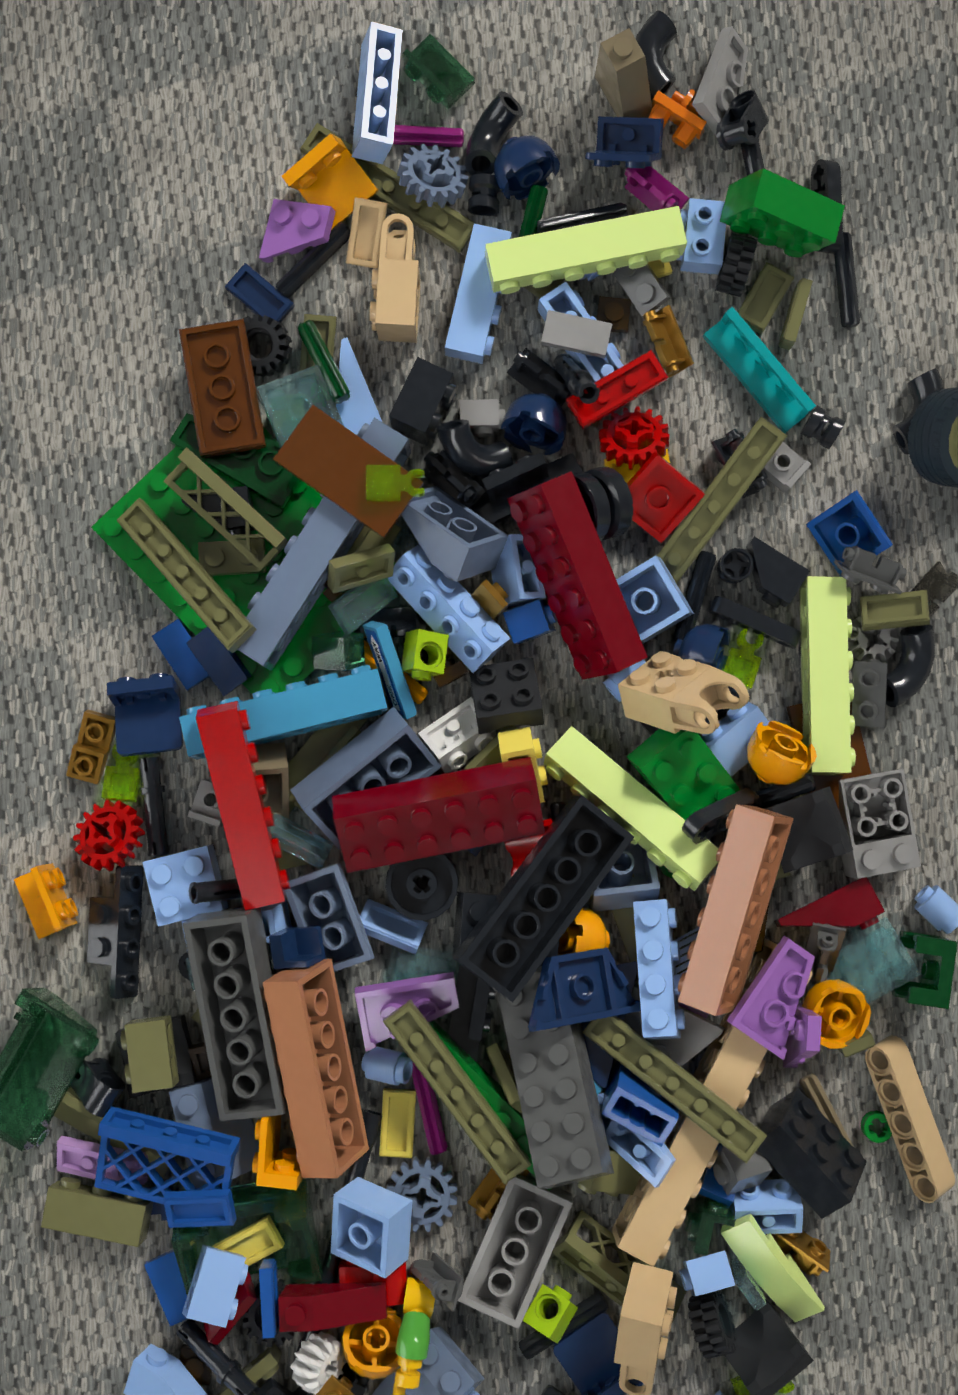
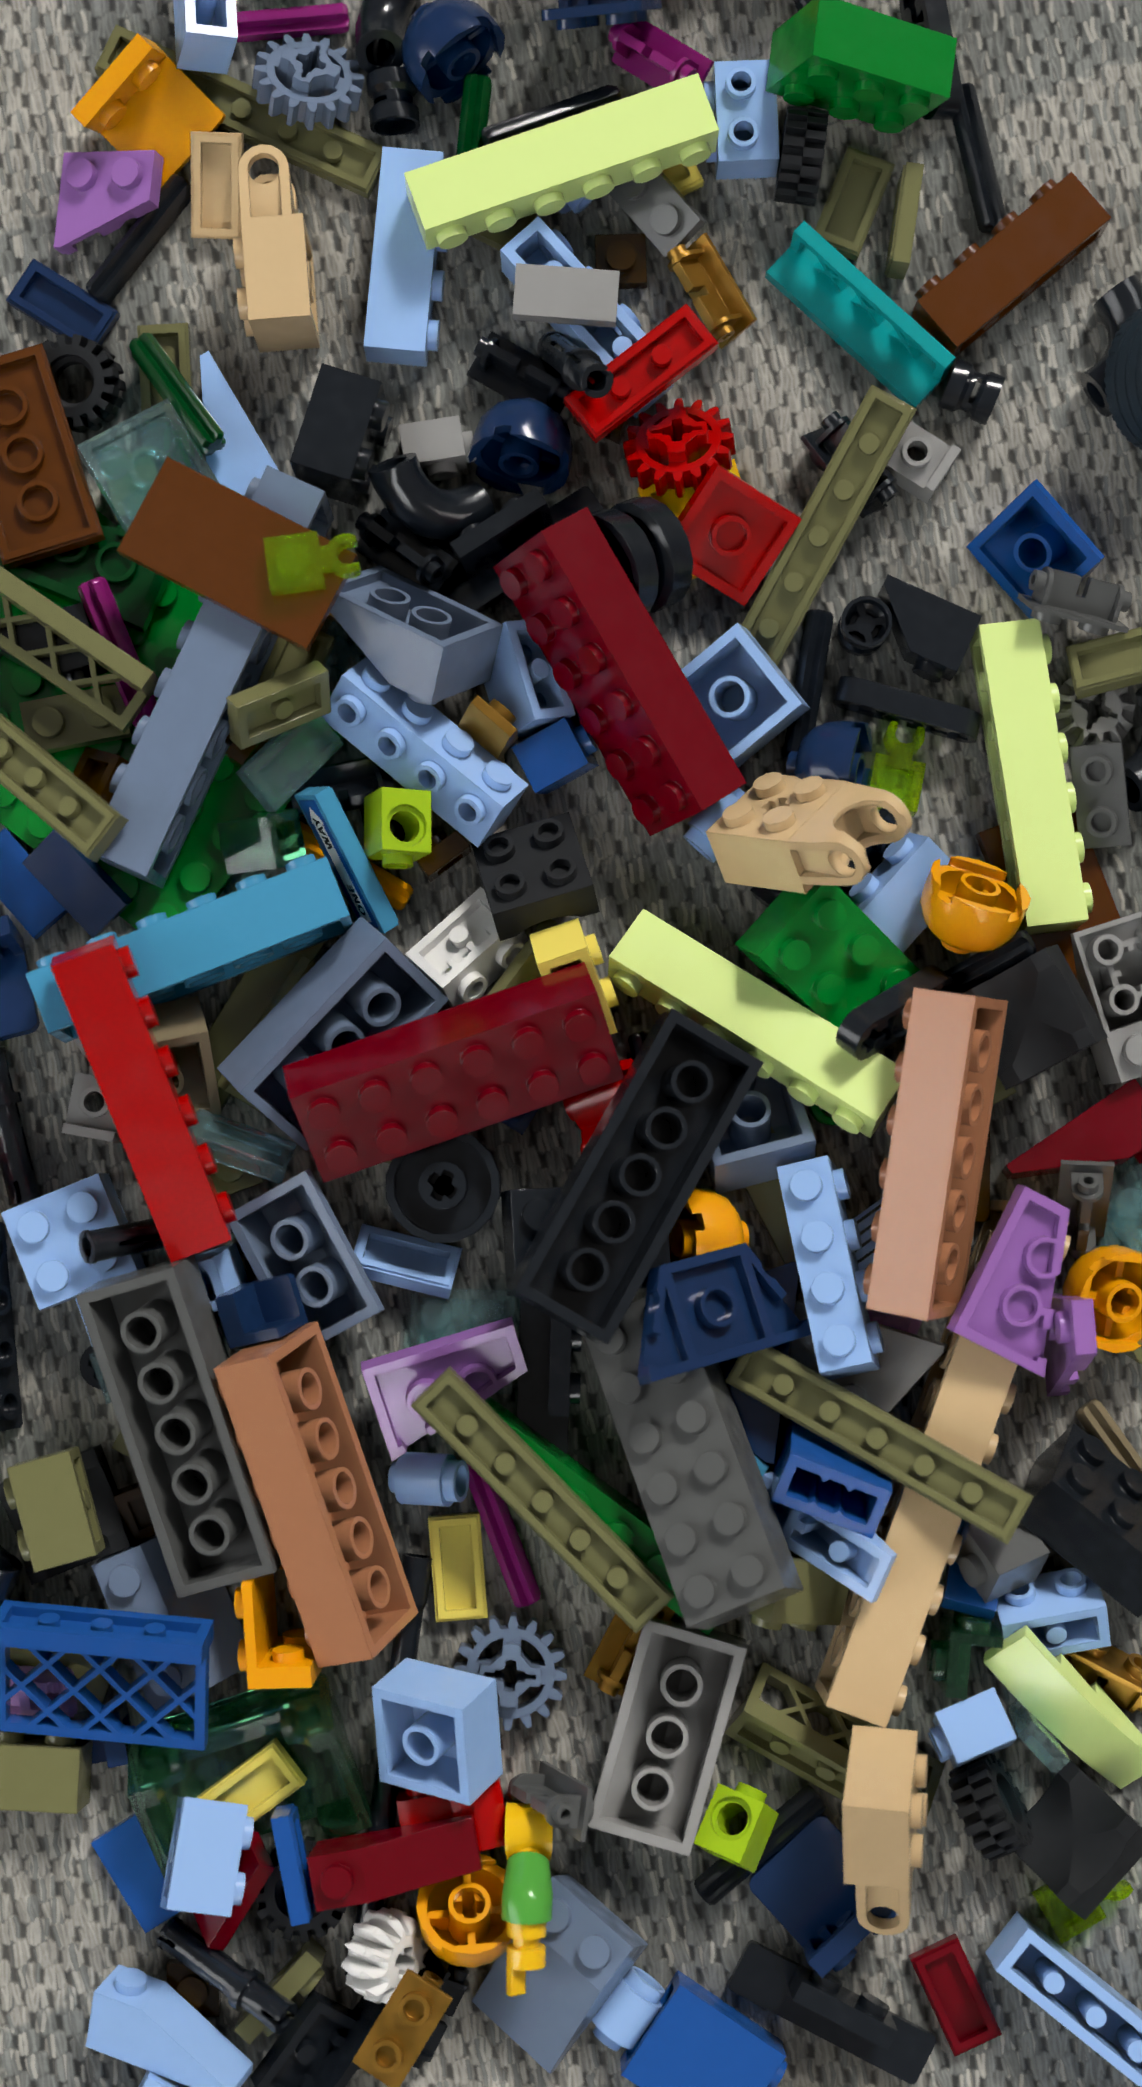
camera: 10 degrees left, 0 degrees up
(199, 1208) = (165, 1738): blue tile -> none
(241, 593) = (97, 770): none -> dark brown plate
(262, 504) = (109, 624): none -> magenta axle
(504, 1070) = (613, 1461): olive tile -> none
(858, 351) = (1011, 264): none -> reddish brown brick

